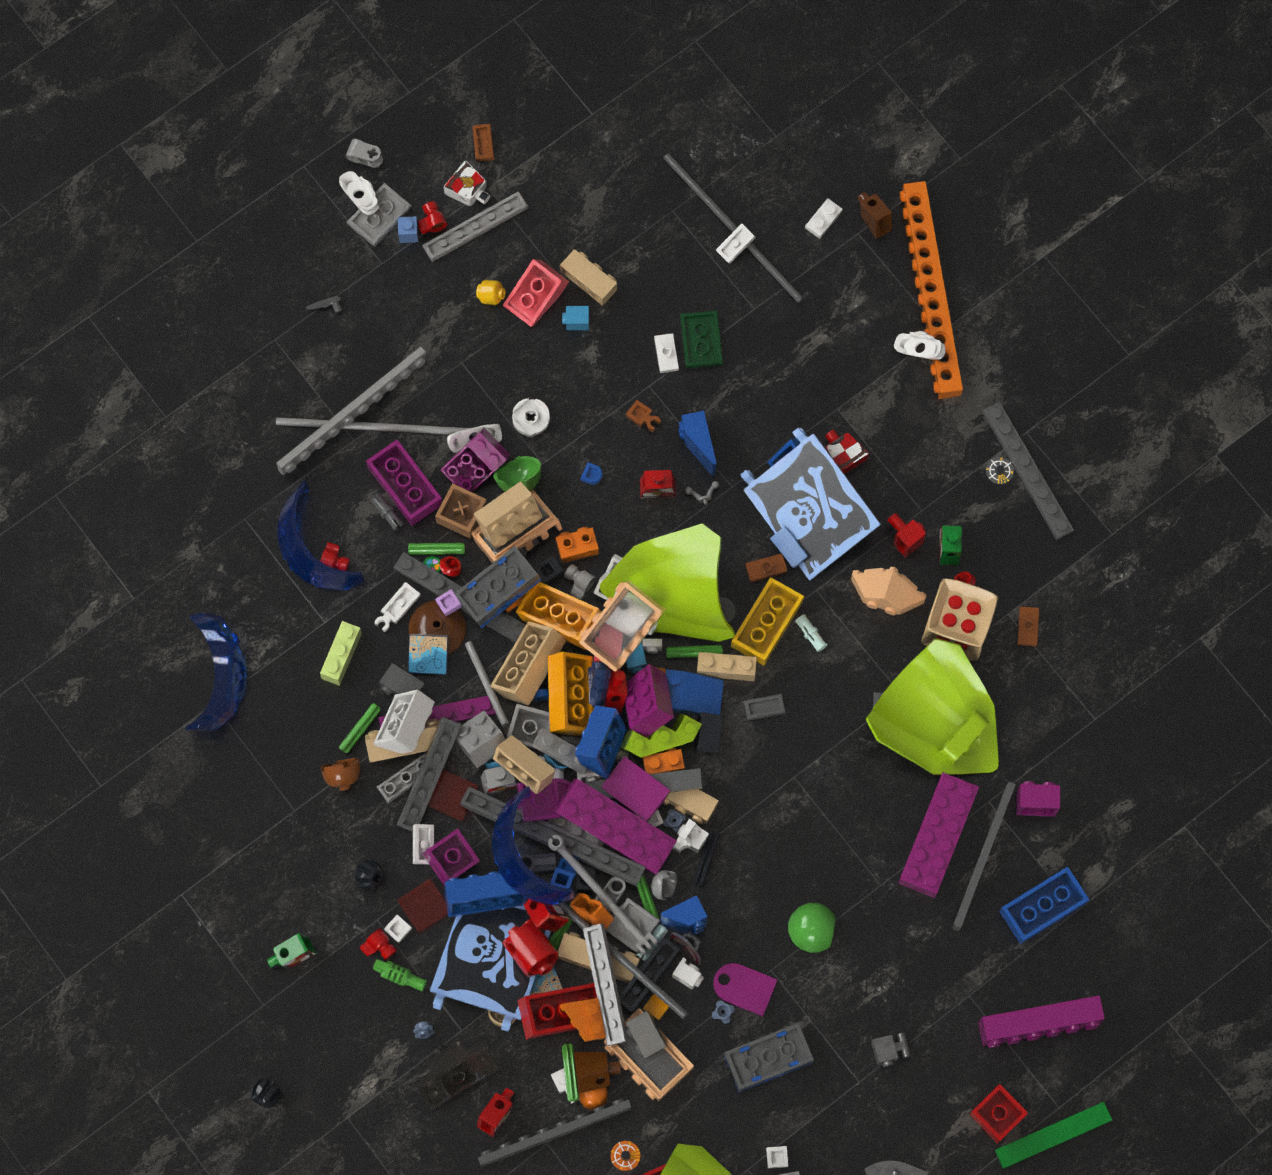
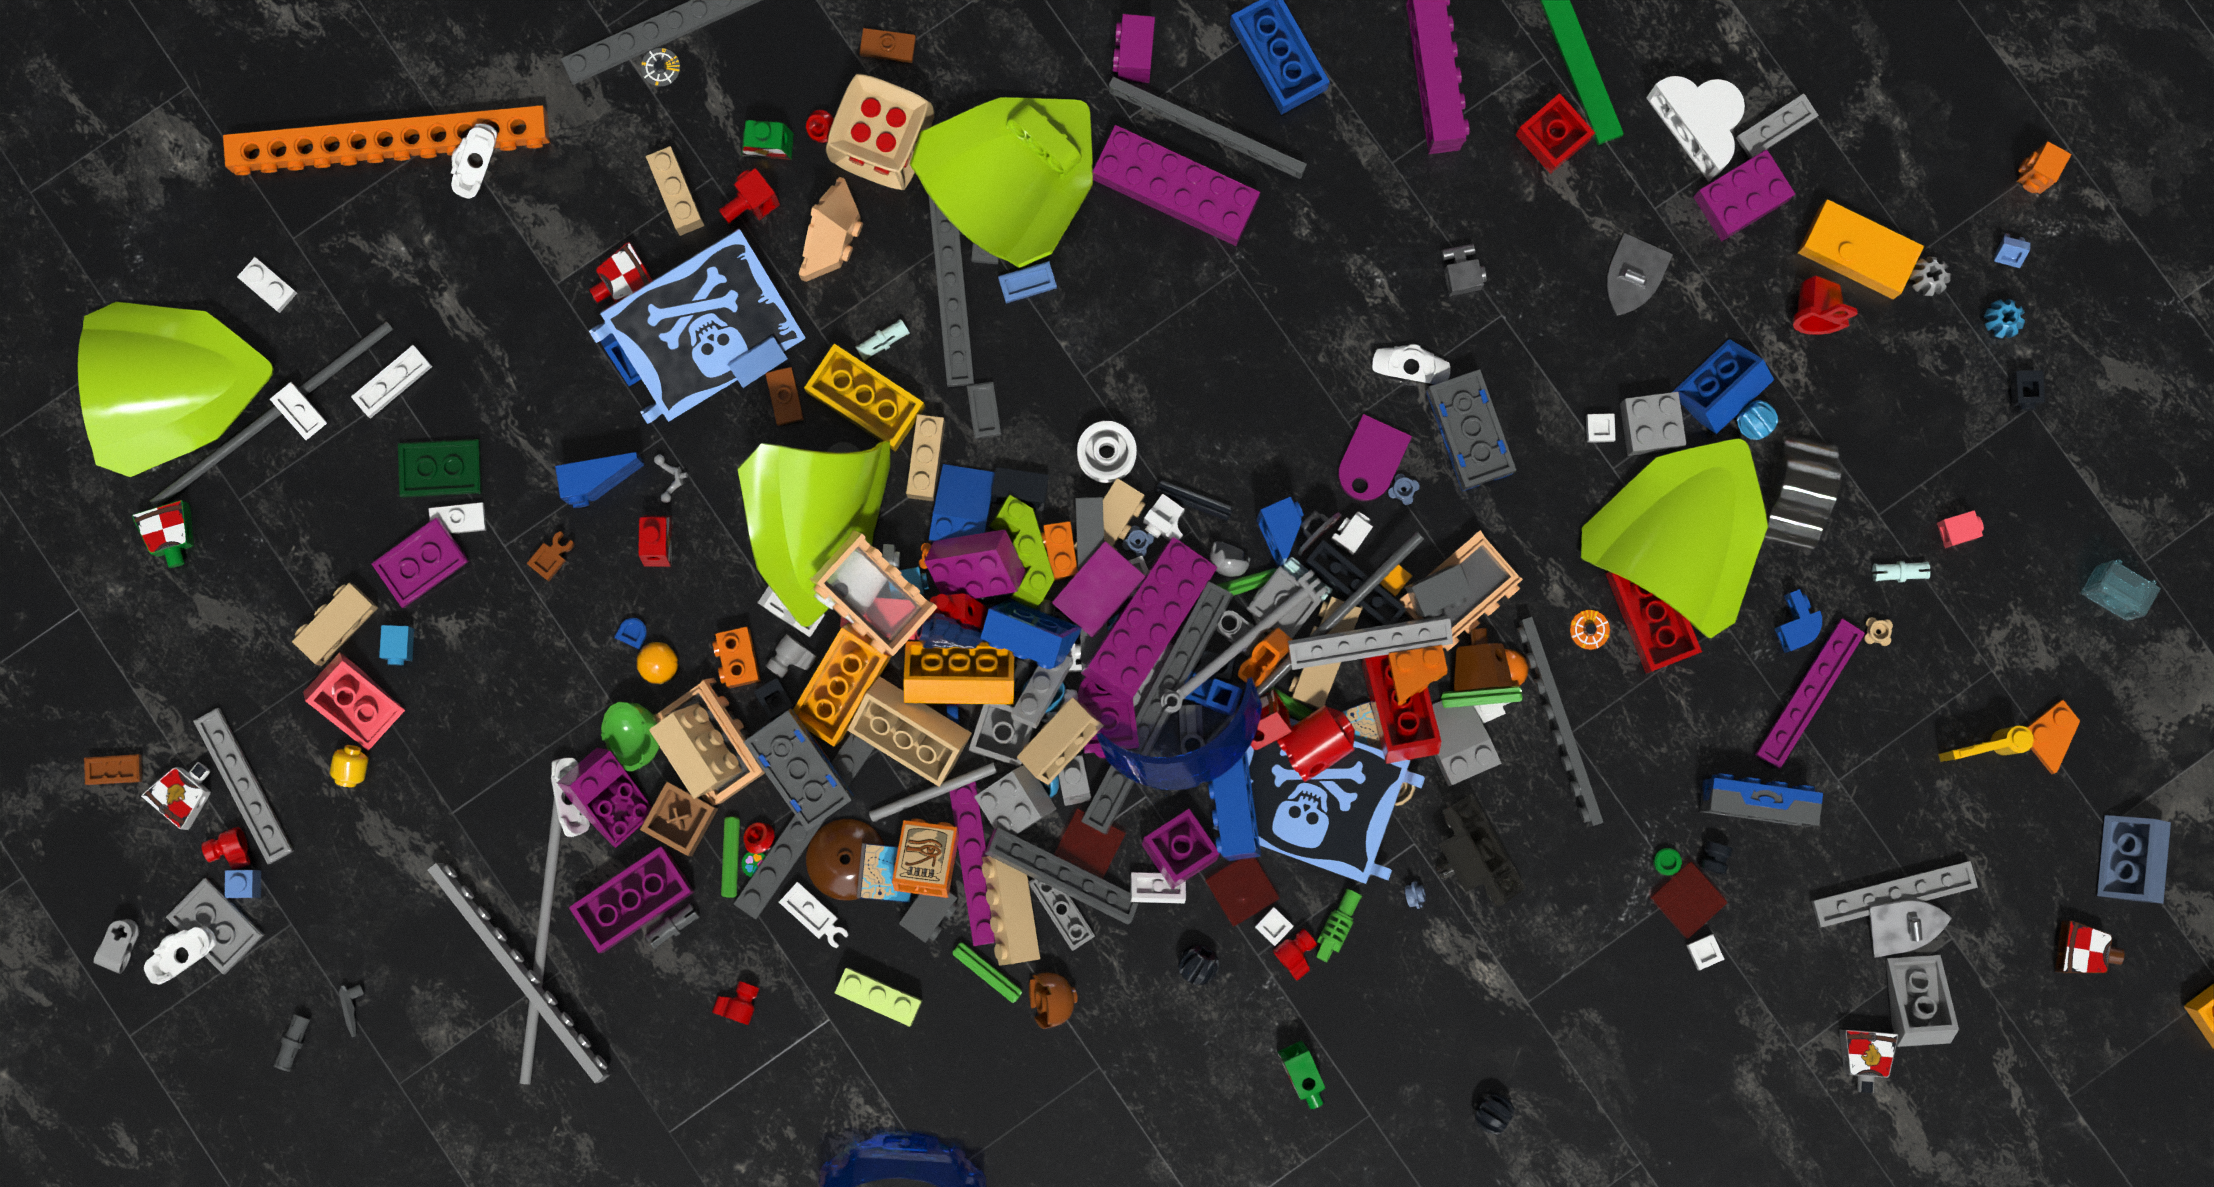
camera: 90 degrees left, 10 degrees up
(300, 559) = (728, 1057): clear blue windscreen -> none
(301, 268) = (291, 1043): none -> dark grey pin
(404, 722) = (990, 907): white slope -> none
(439, 677) = (925, 858): none -> brick
(448, 602) = (815, 841): lavender plate -> none
(492, 1117) = (1539, 807): red torso -> none
(531, 407) = (558, 715): white plate -> none
(536, 1058) = (1464, 745): none -> light grey slope
(571, 491) = (657, 662): none -> light orange hair
(634, 330) = (420, 562): none -> magenta tile
(647, 165) = (167, 531): none -> torso
(692, 651) = (900, 502): bright green axle -> none
(741, 781) = (1106, 469): none -> white wheel
(749, 153) = (161, 383): none -> lime windscreen
(760, 303) = (391, 381): none -> white plate
(812, 927) = (1293, 363): bright green cylinder -> none
(814, 1028) = (1391, 362): none -> white piece
(841, 680) = (951, 299): none -> dark grey plate
(860, 733) = (1027, 282): none -> medium blue tile
(875, 214) = (267, 209): reddish brown torso -> none
(908, 483) = (675, 191): none -> tan brick

